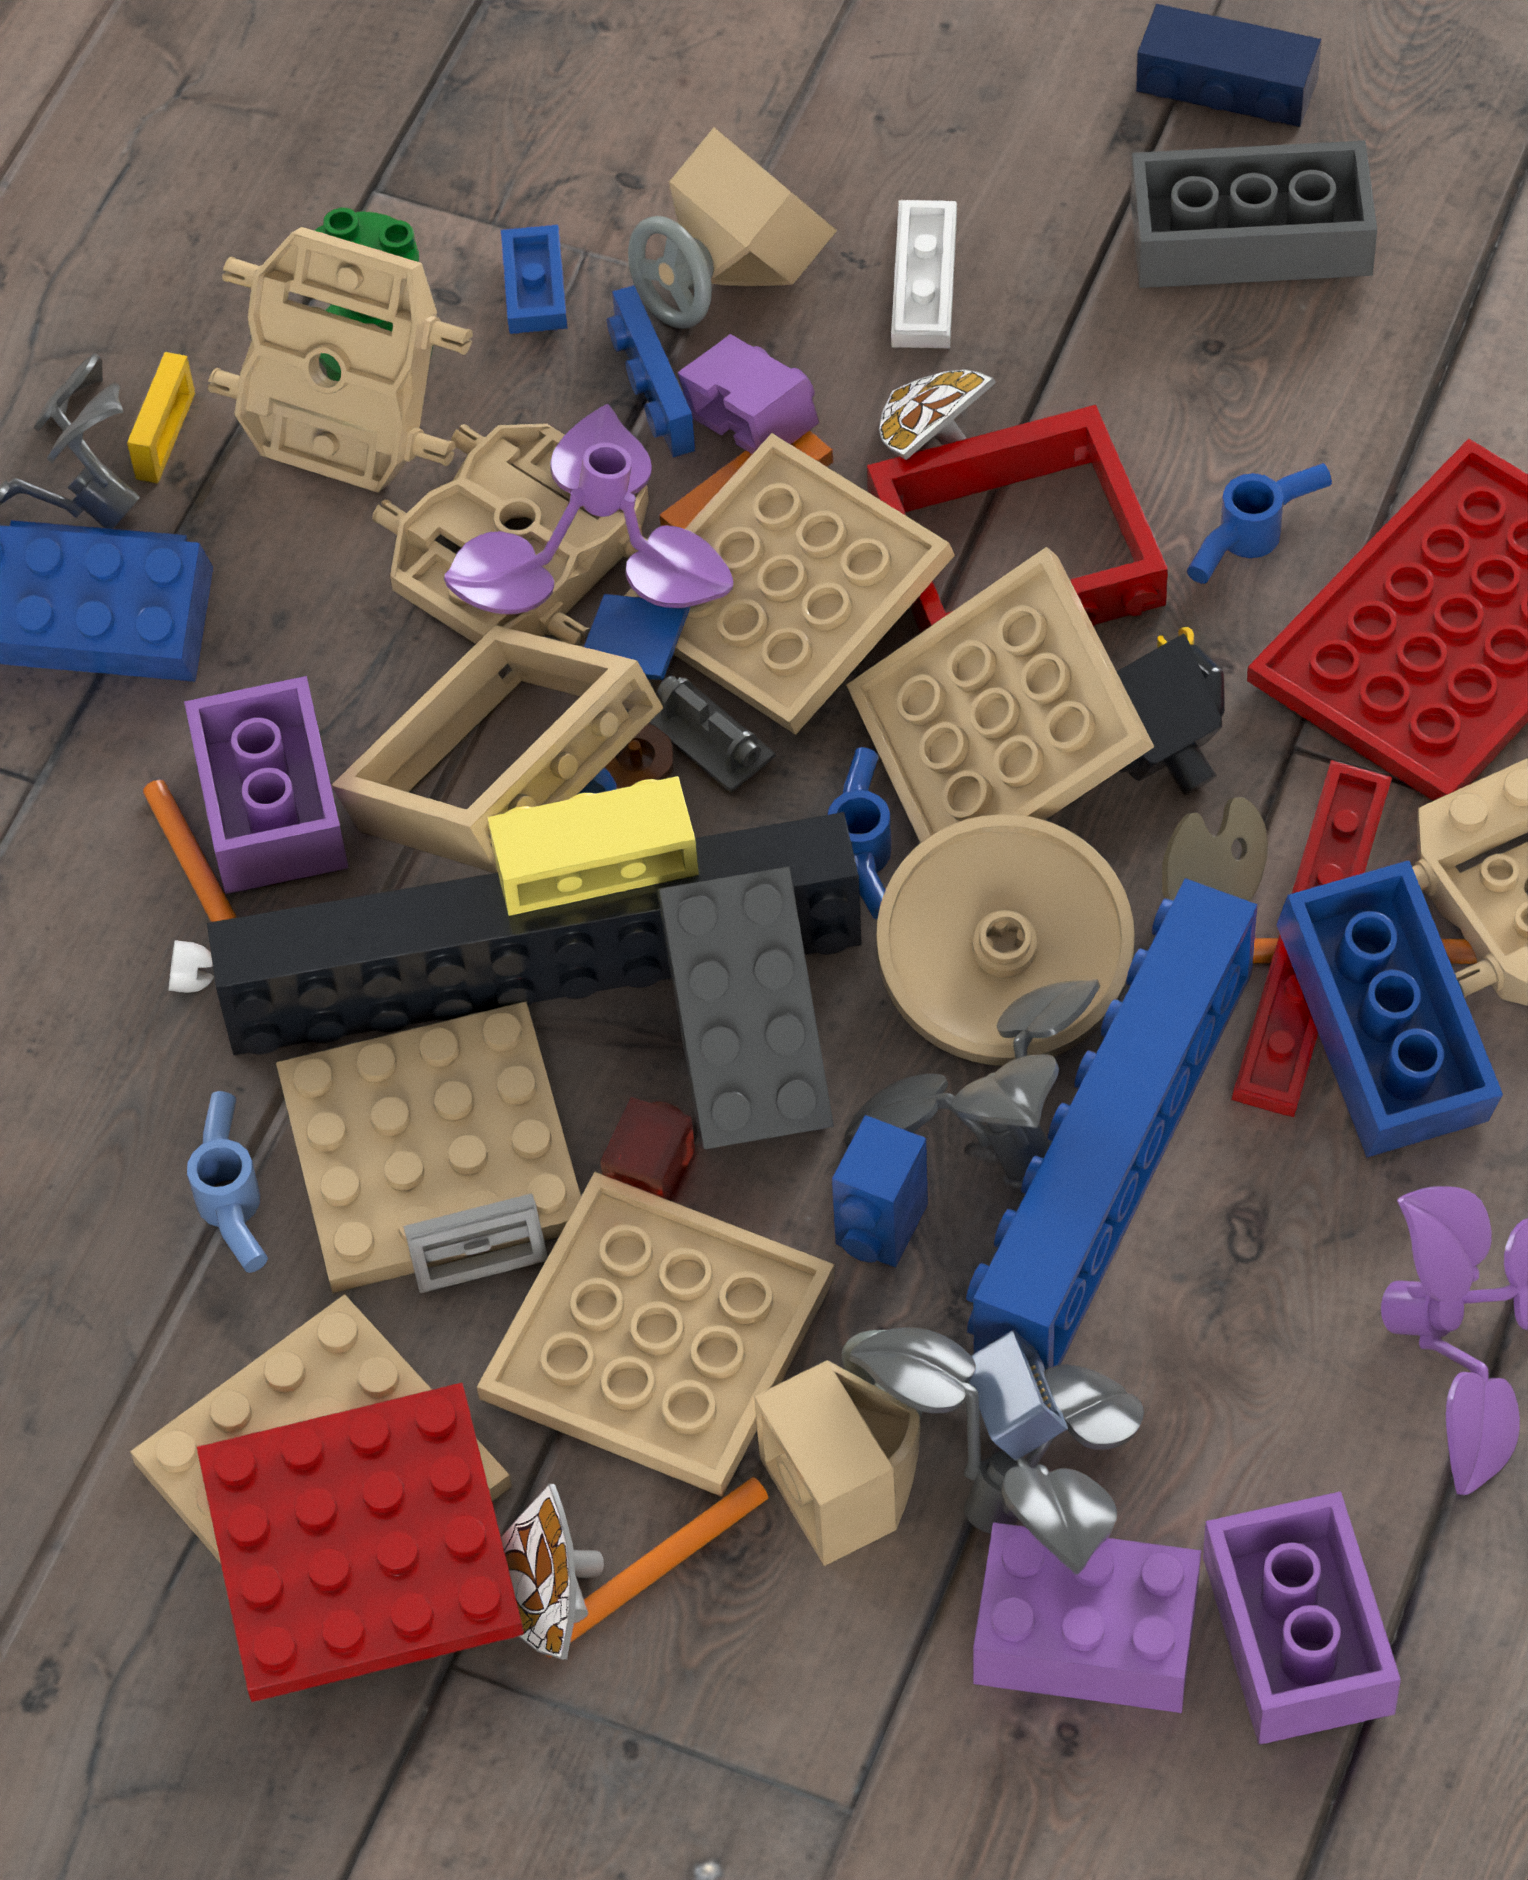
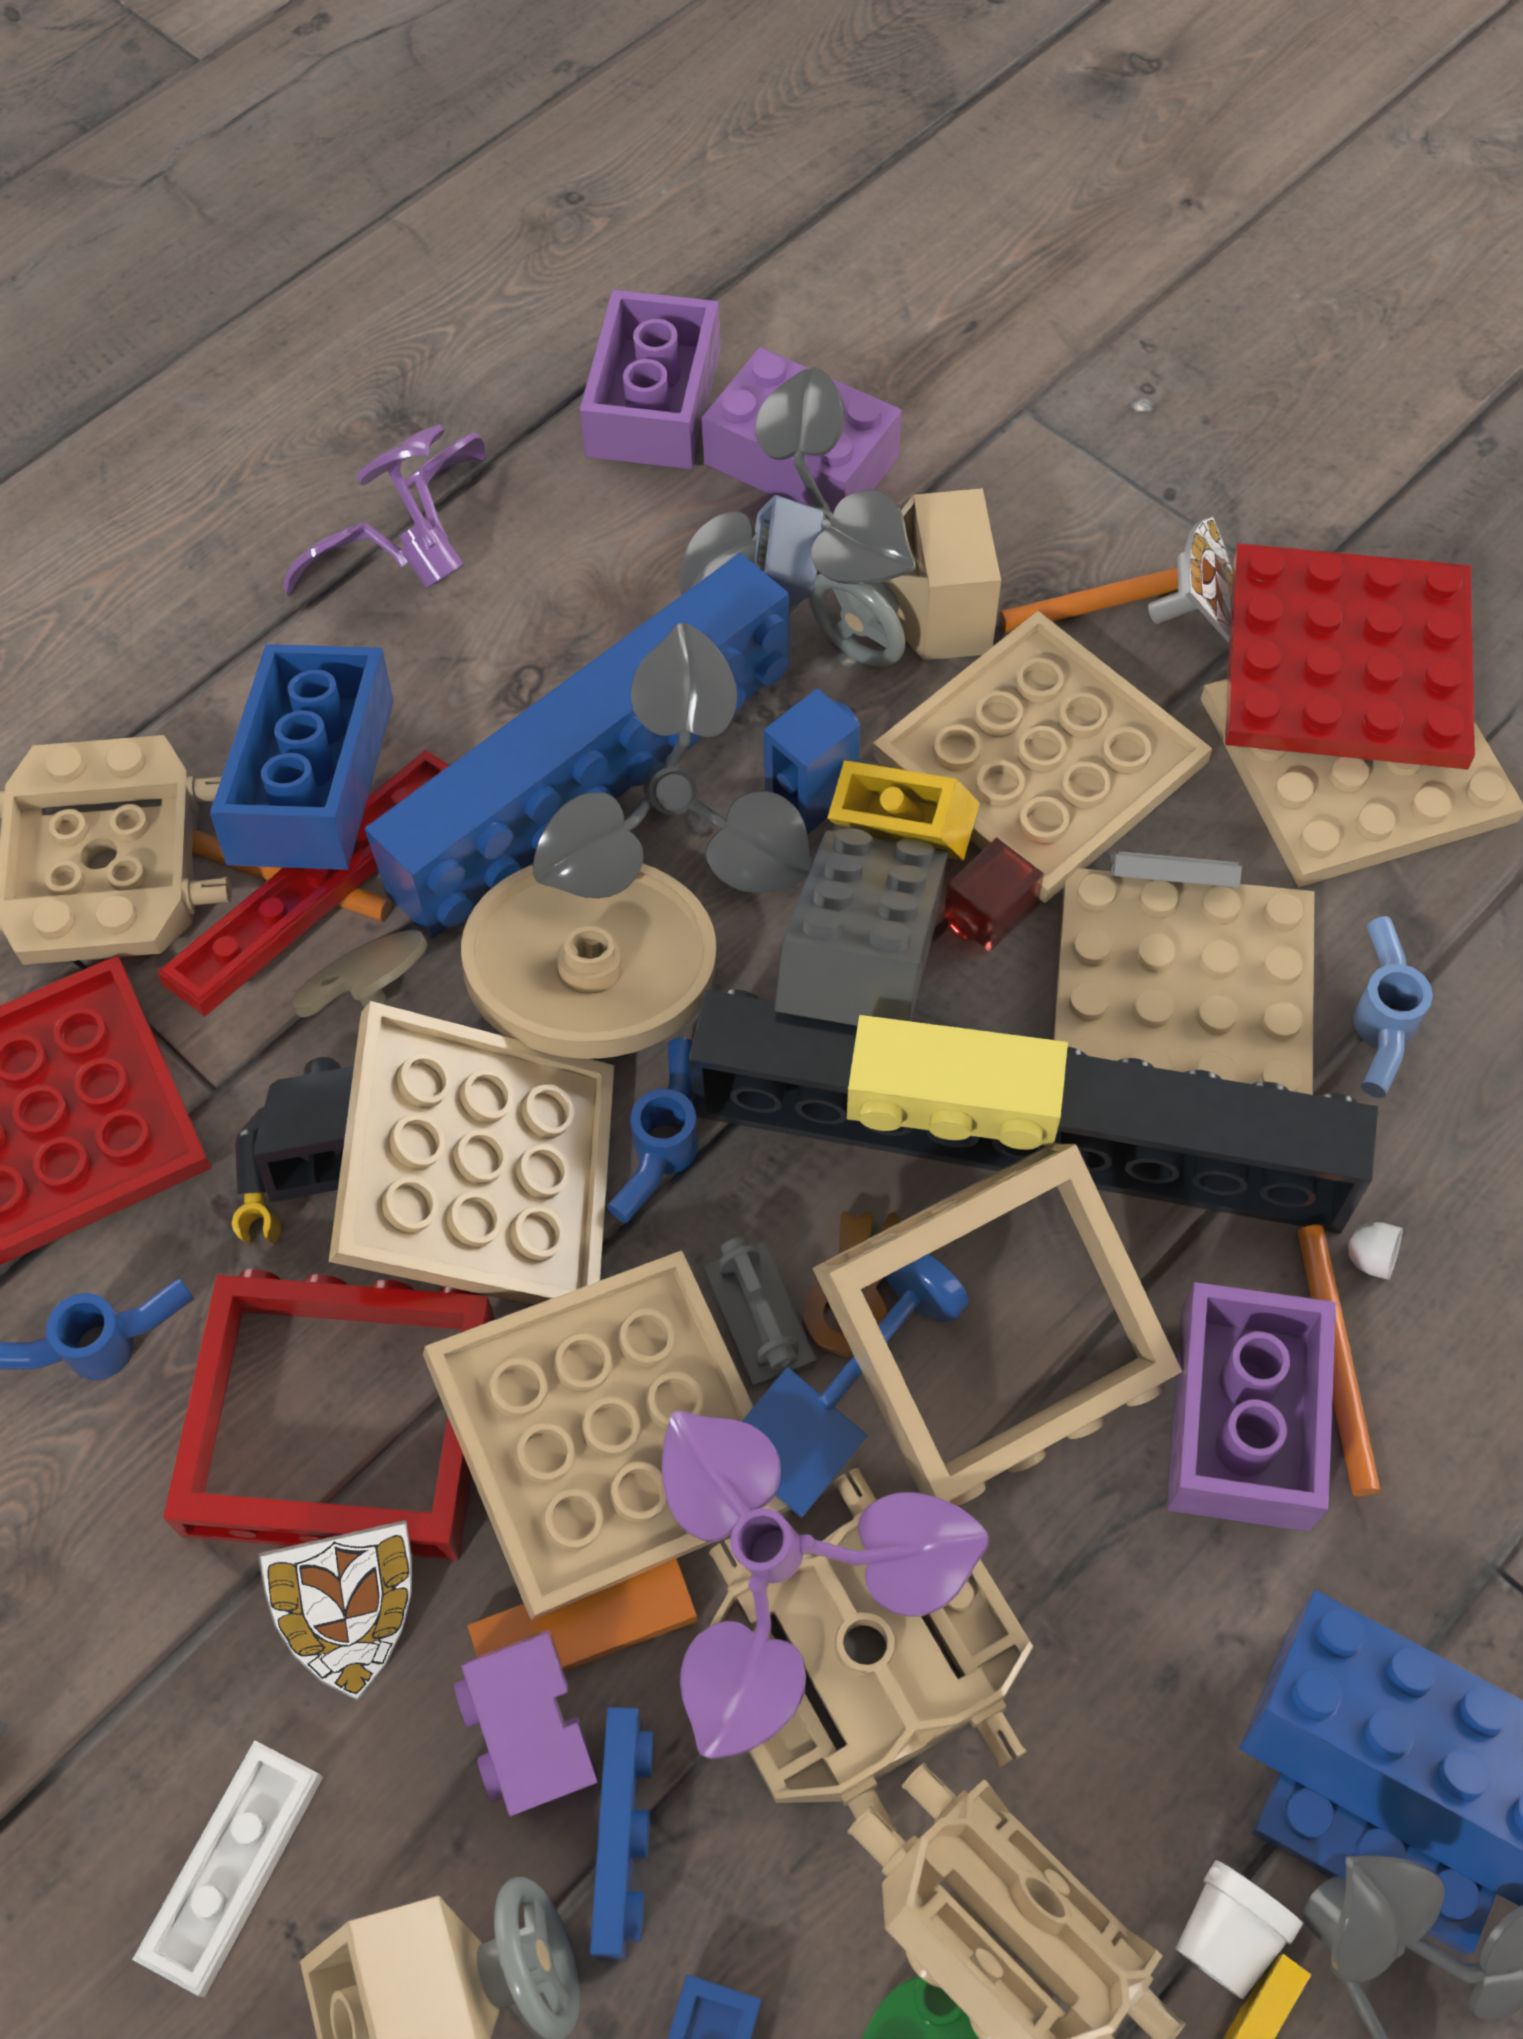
camera: 160 degrees left, 5 degrees up
(185, 469) = (1236, 1930): none -> white piece
(764, 1176) = (905, 805): none -> yellow brick

